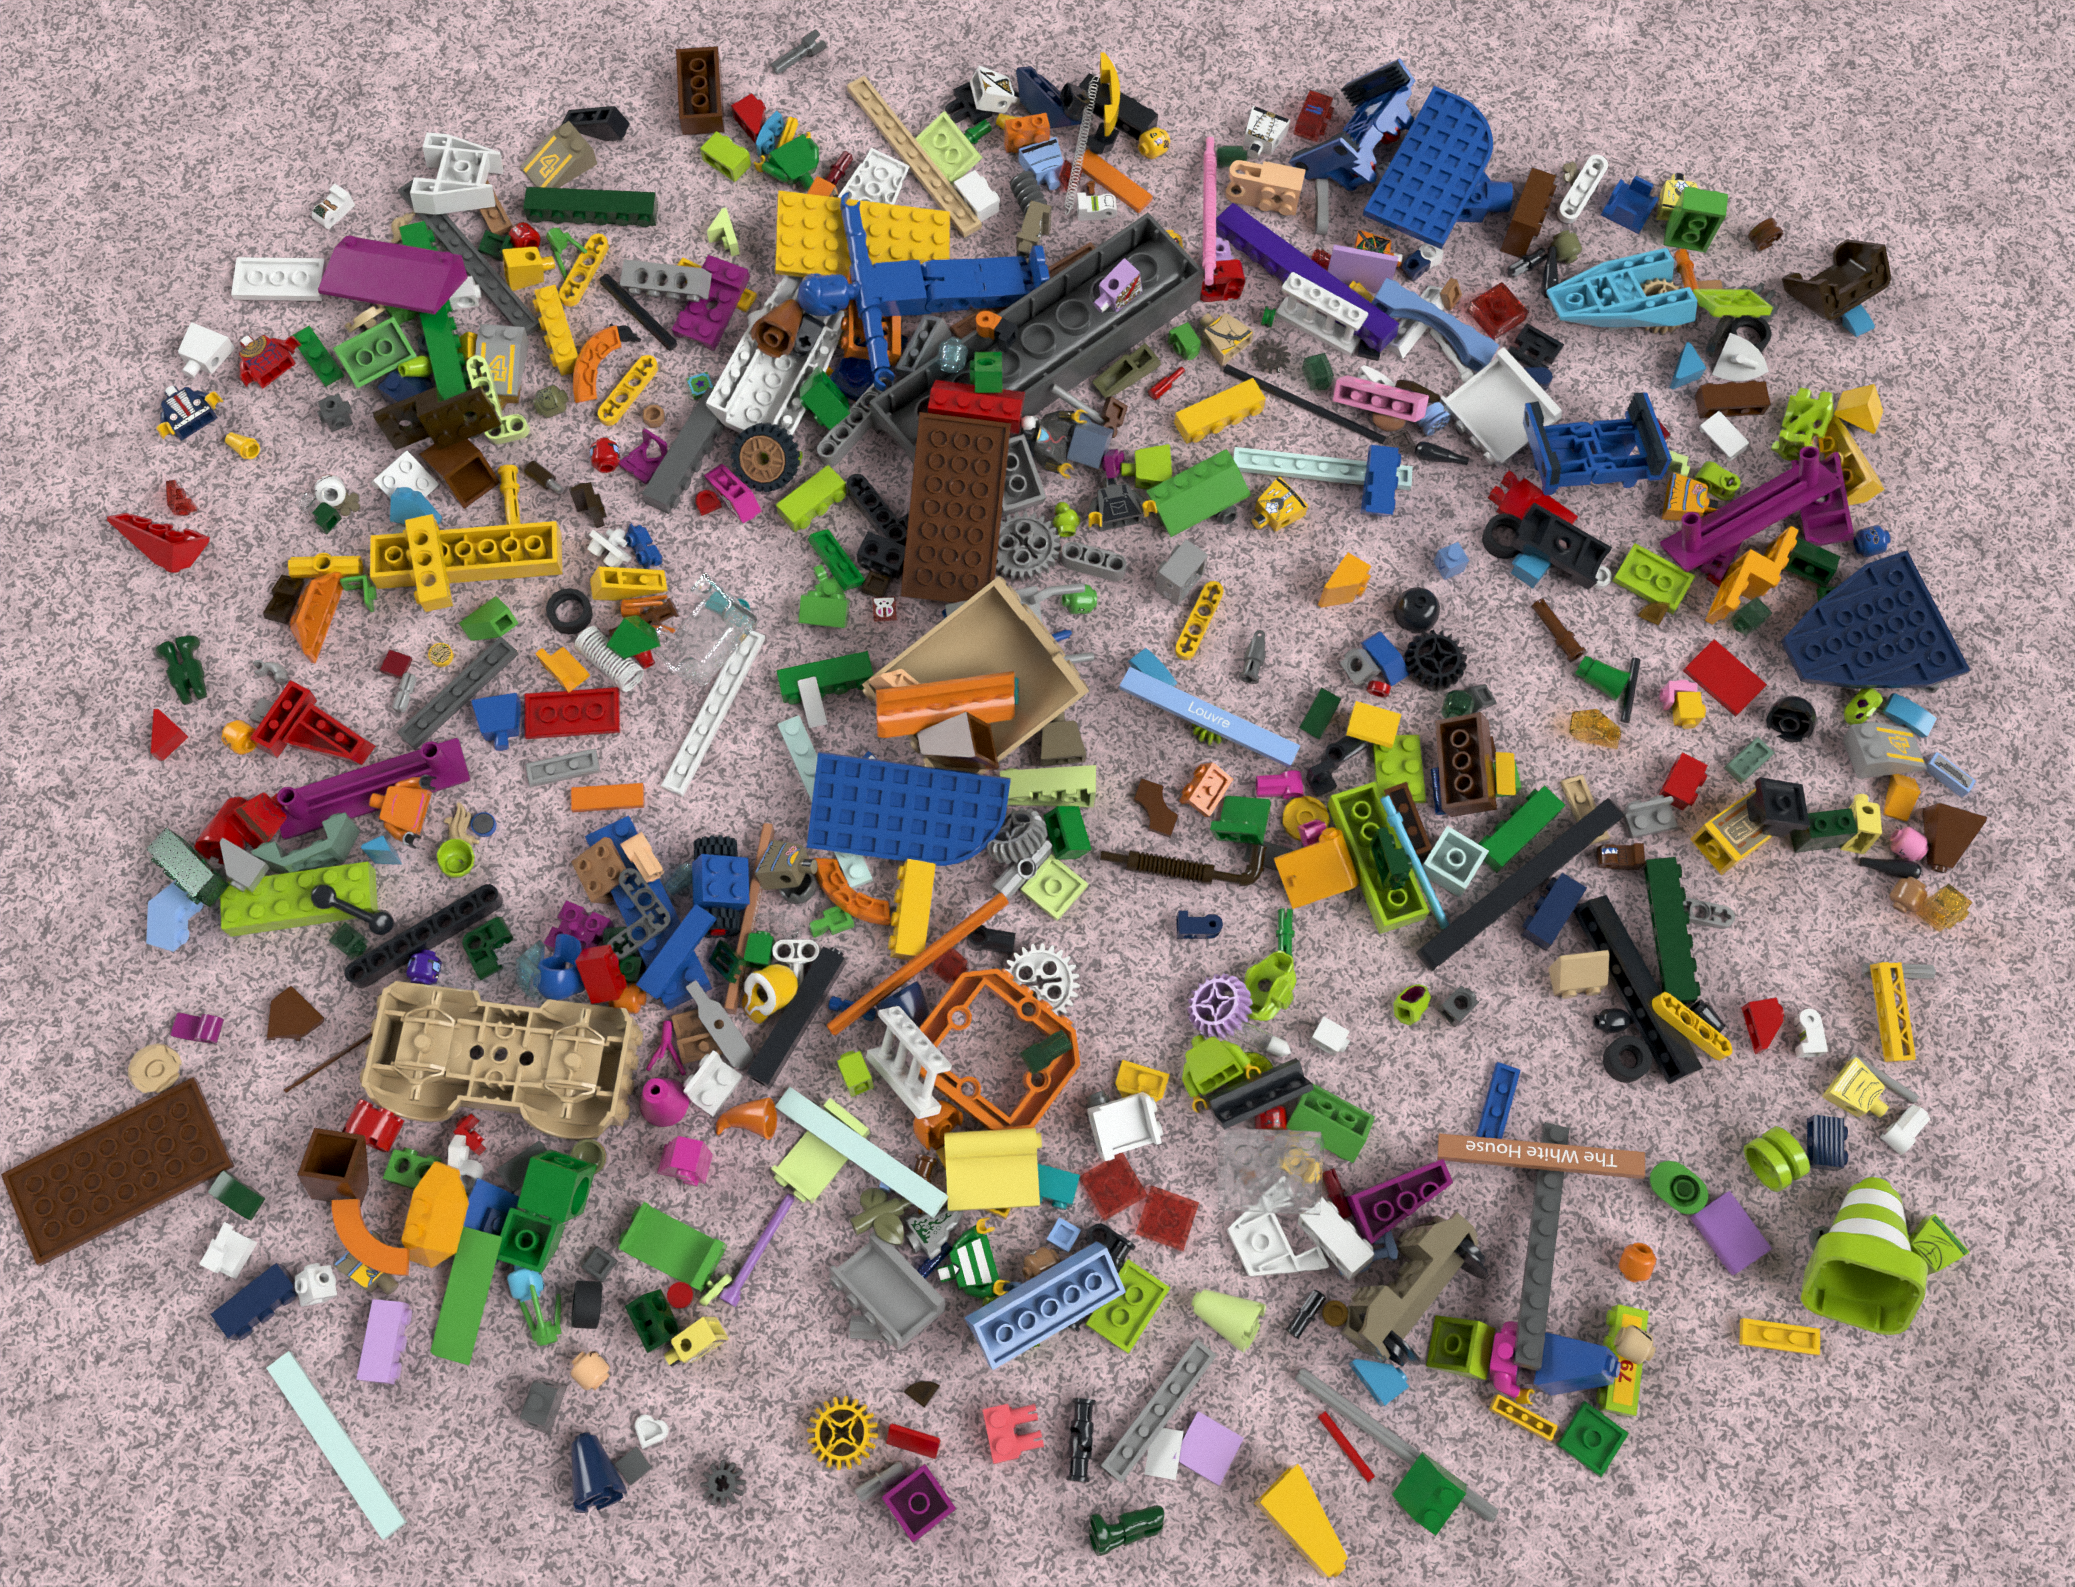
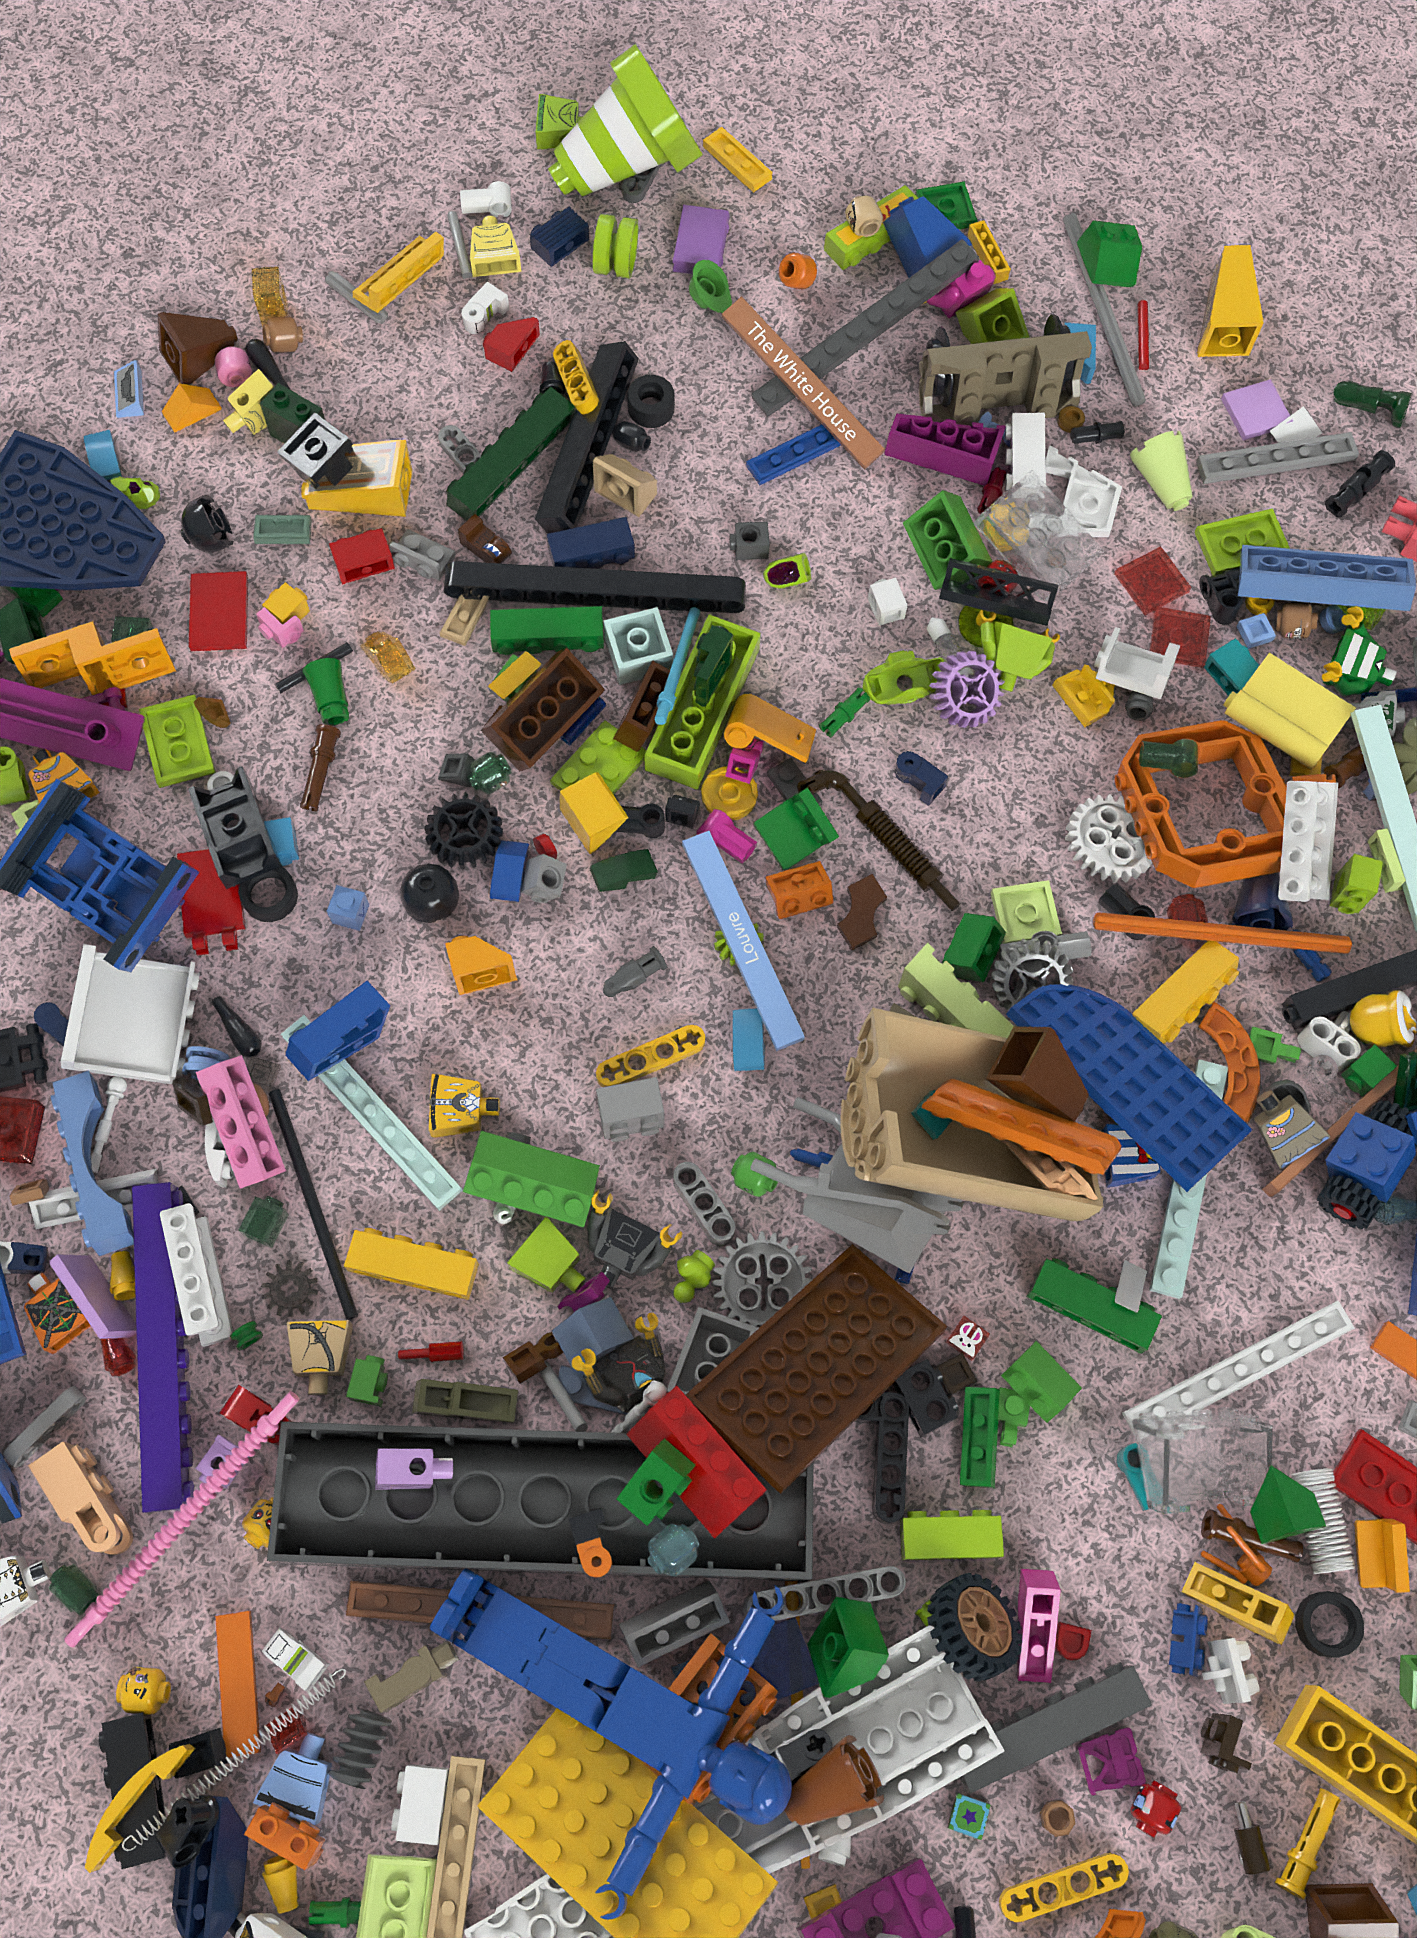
camera: 140 degrees left, 0 degrees up
(1882, 750) = (163, 445): light grey slope -> none

